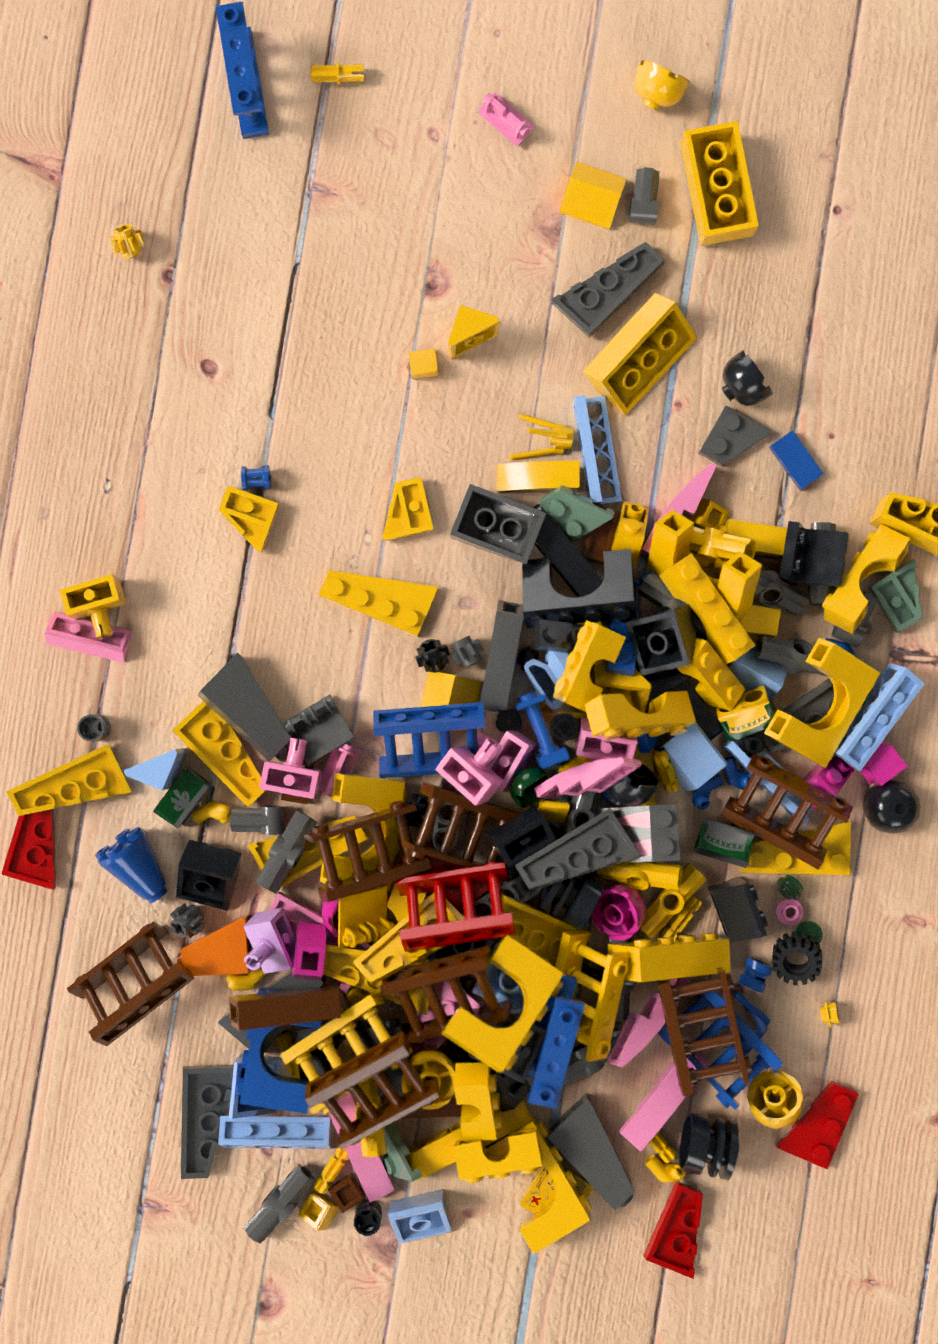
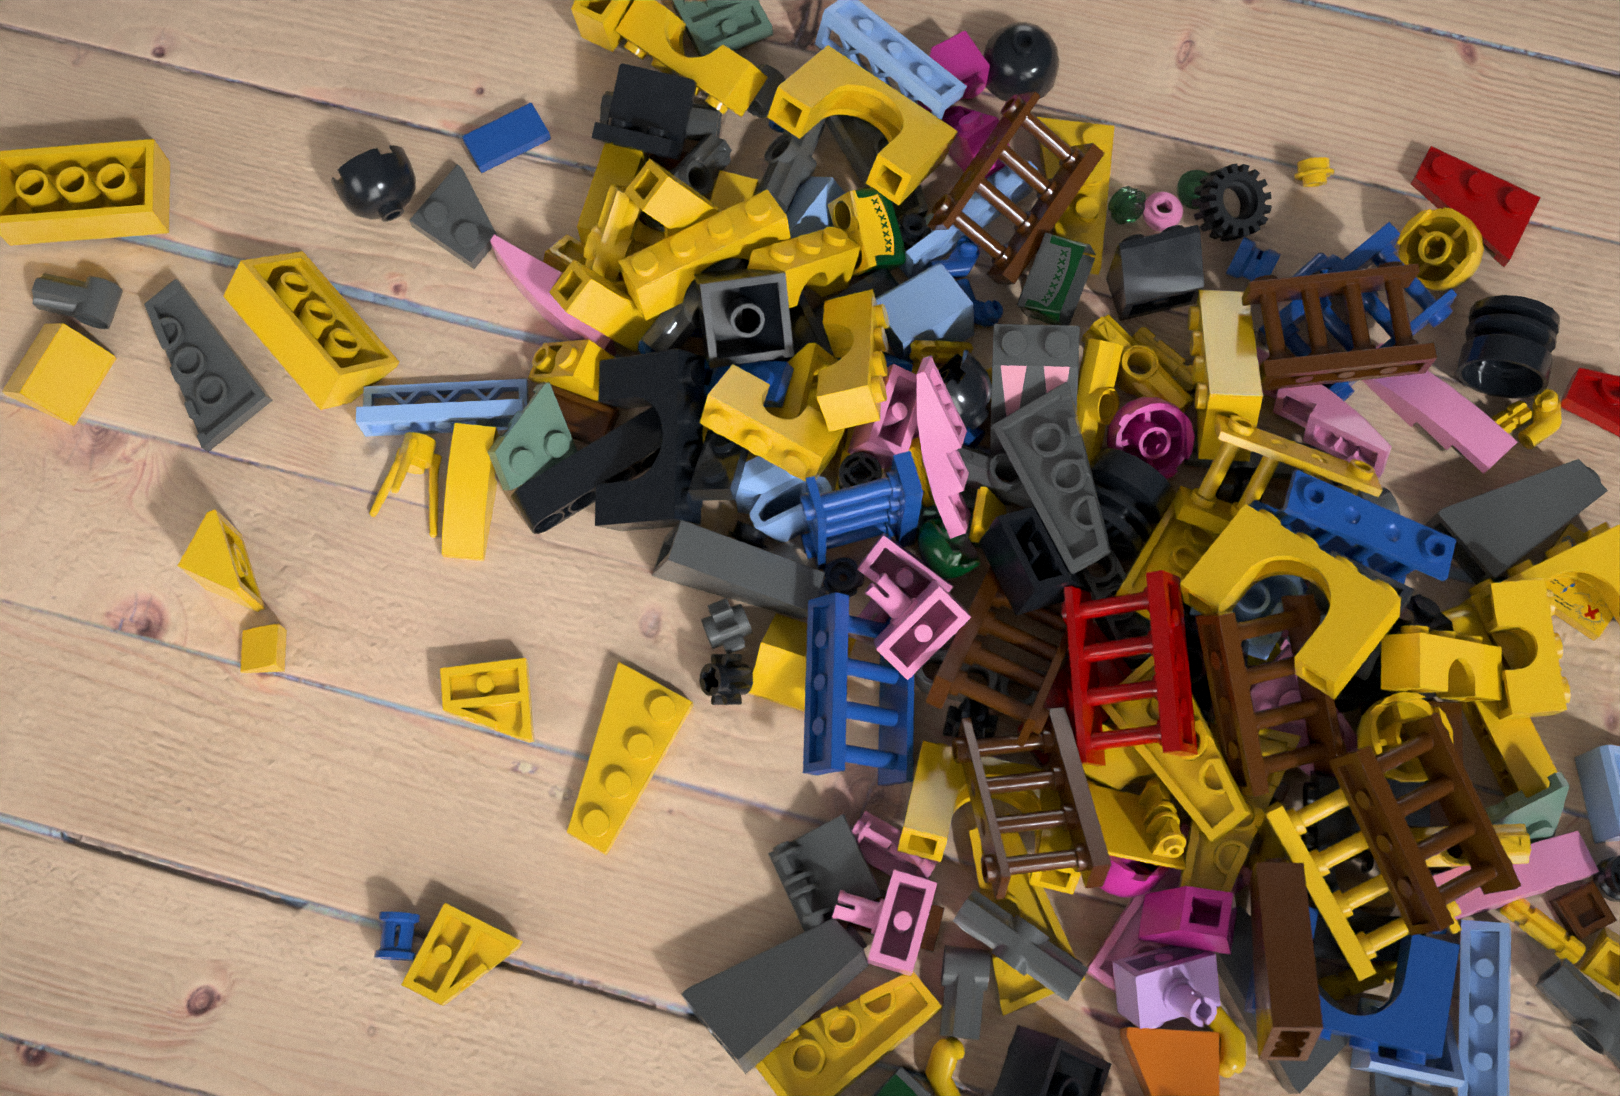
camera: 80 degrees left, 15 degrees down
(497, 524) = (533, 556): dark grey slope -> none

